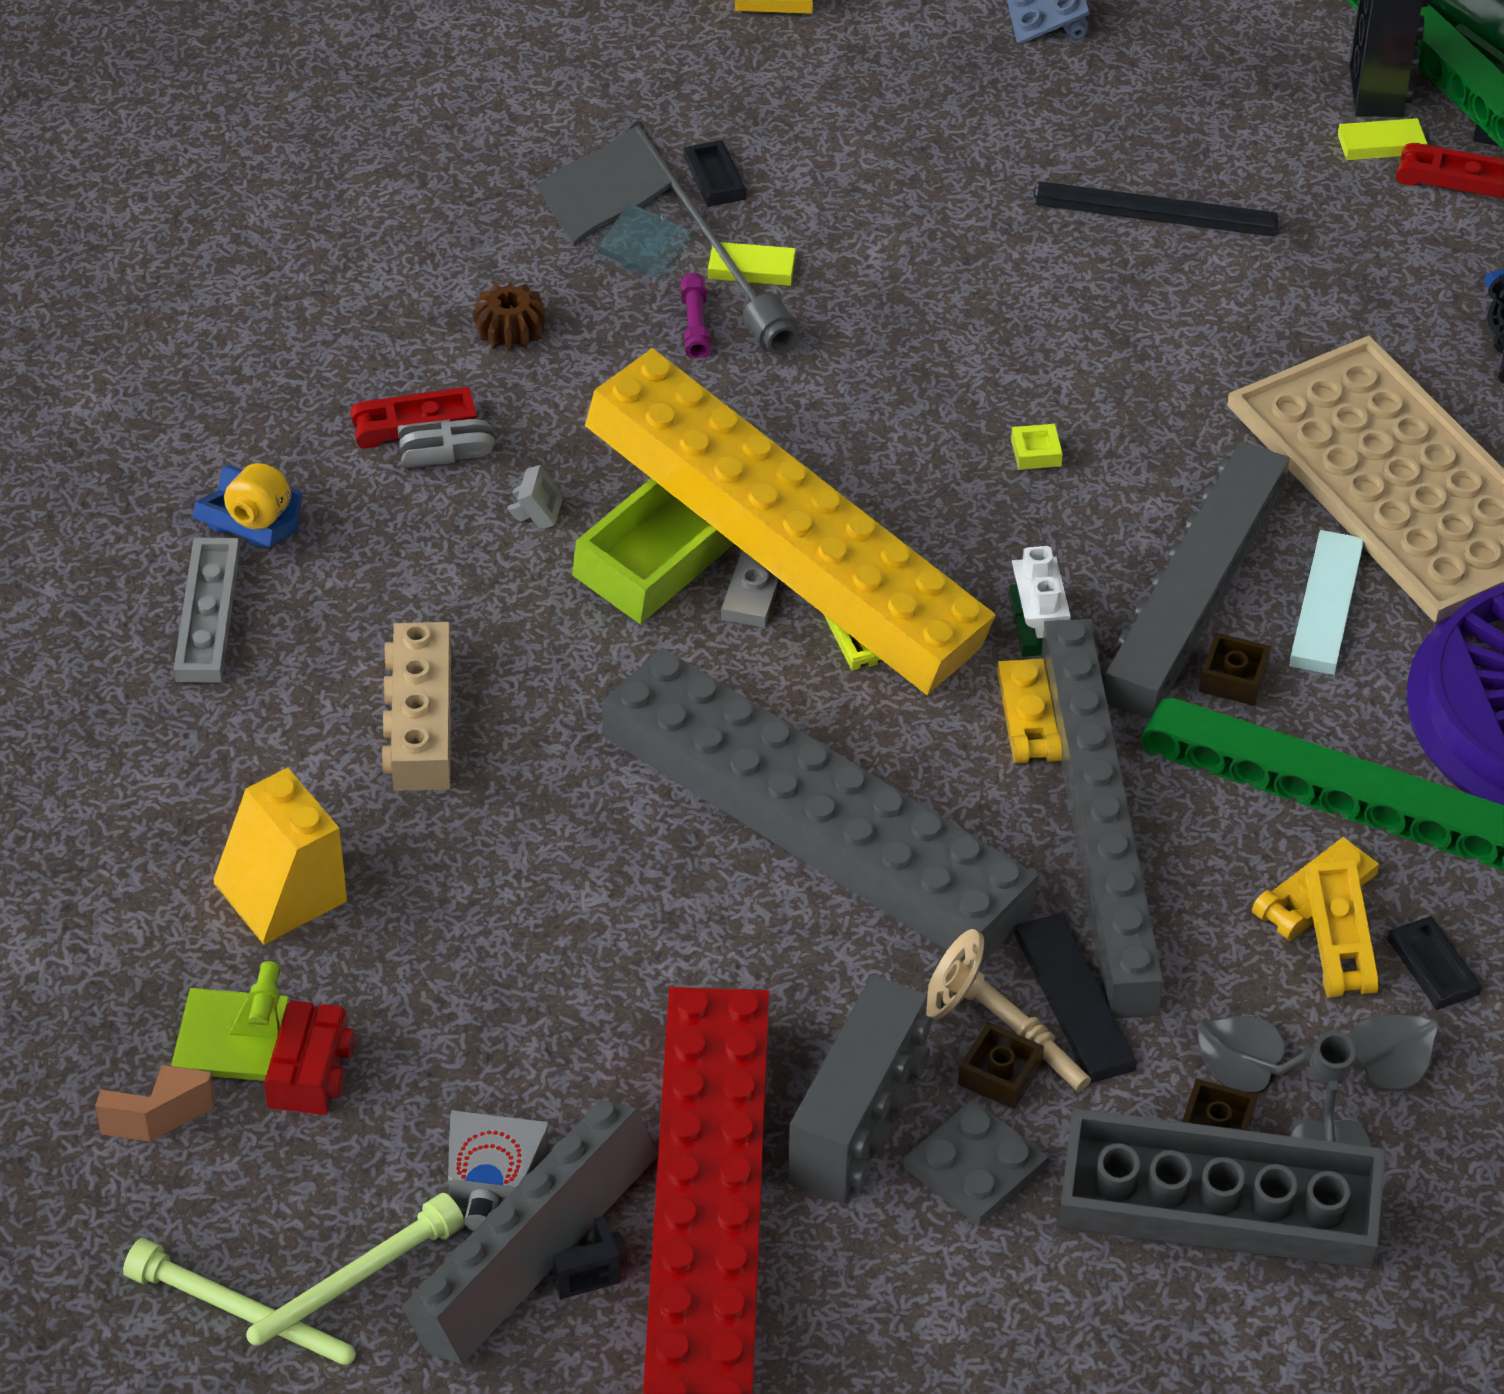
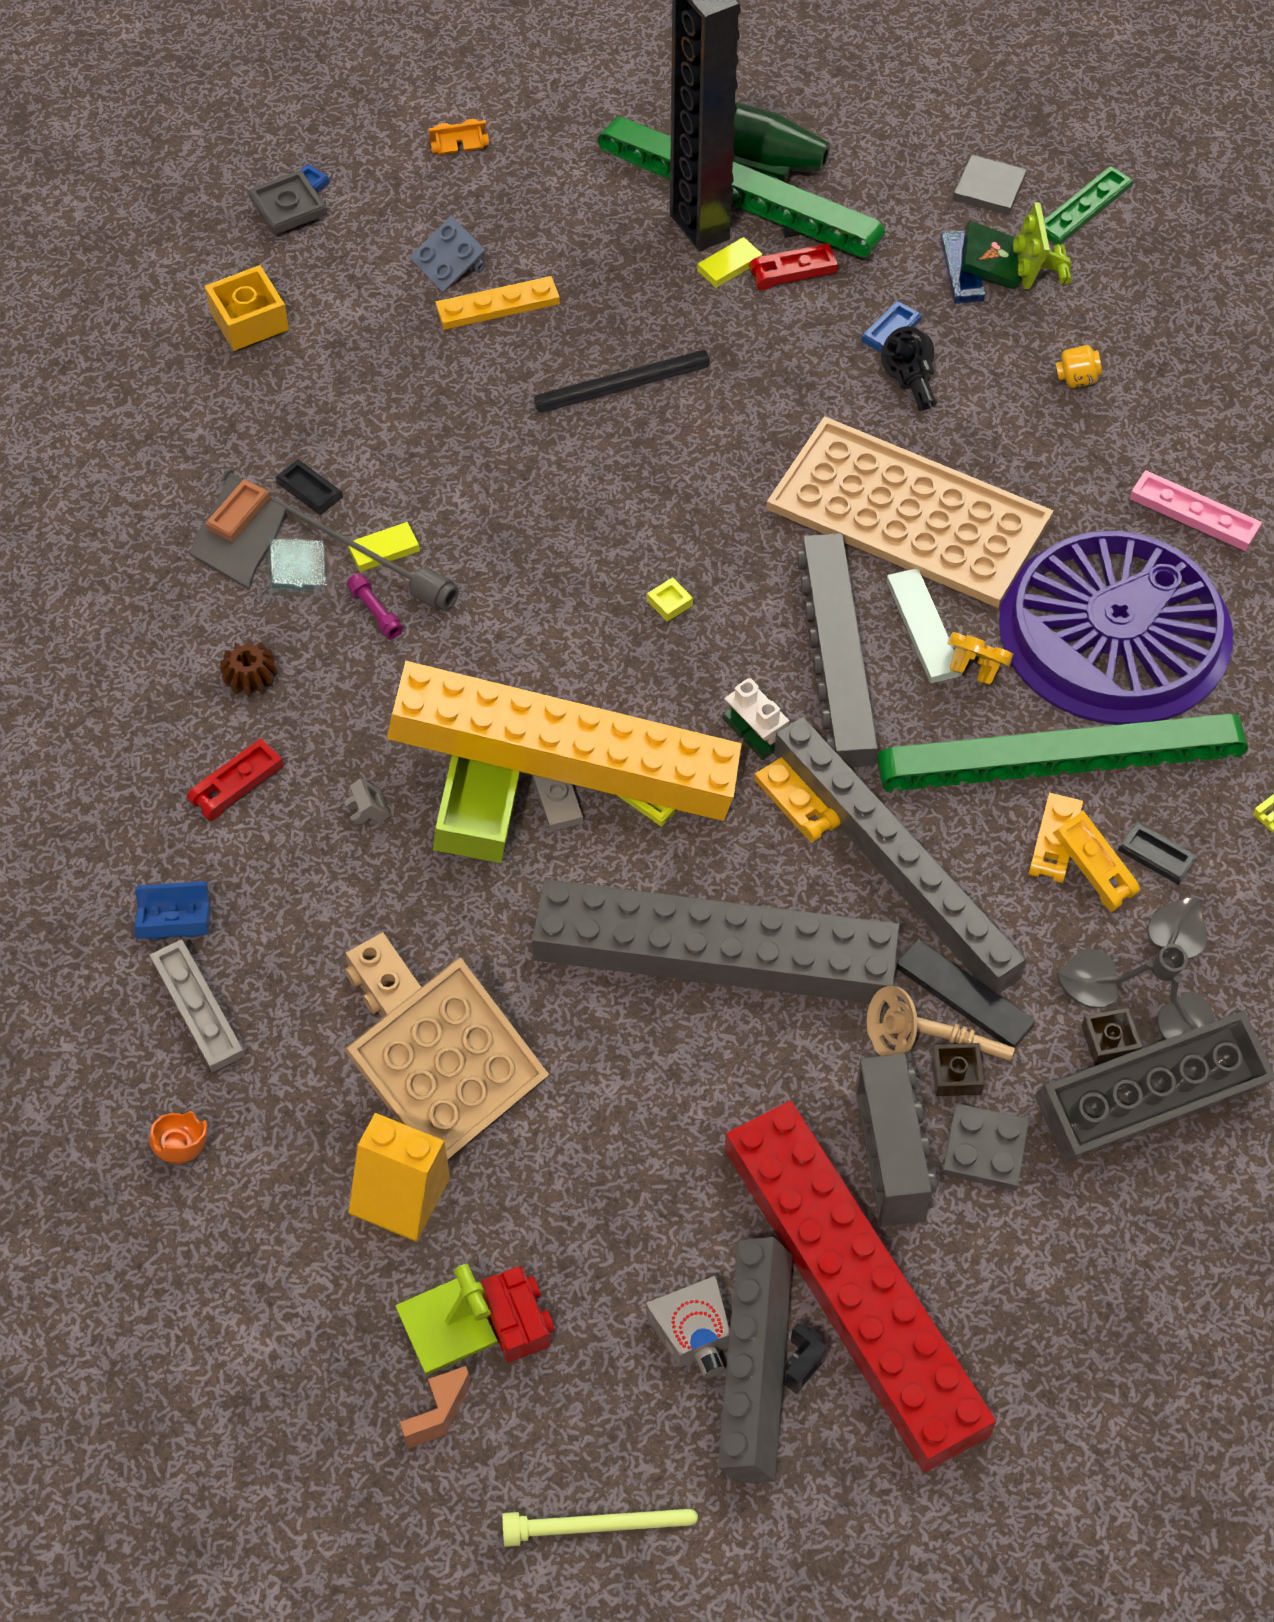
camera: 30 degrees left, 10 degrees up
(89, 721) = (168, 1136): none -> orange hair
(257, 496) = (182, 901): yellow head -> none
(418, 772) = (447, 1059): none -> tan plate
(438, 1219) = (684, 1384): yellowish green piece -> none
(444, 442) = (271, 786): light grey arm -> none
(617, 162) = (238, 510): none -> nougat tile
(1071, 76) = (497, 302): none -> yellow plate
(1235, 668) = (904, 704): dark brown piece -> none
(1378, 660) = (972, 647): none -> yellow plate

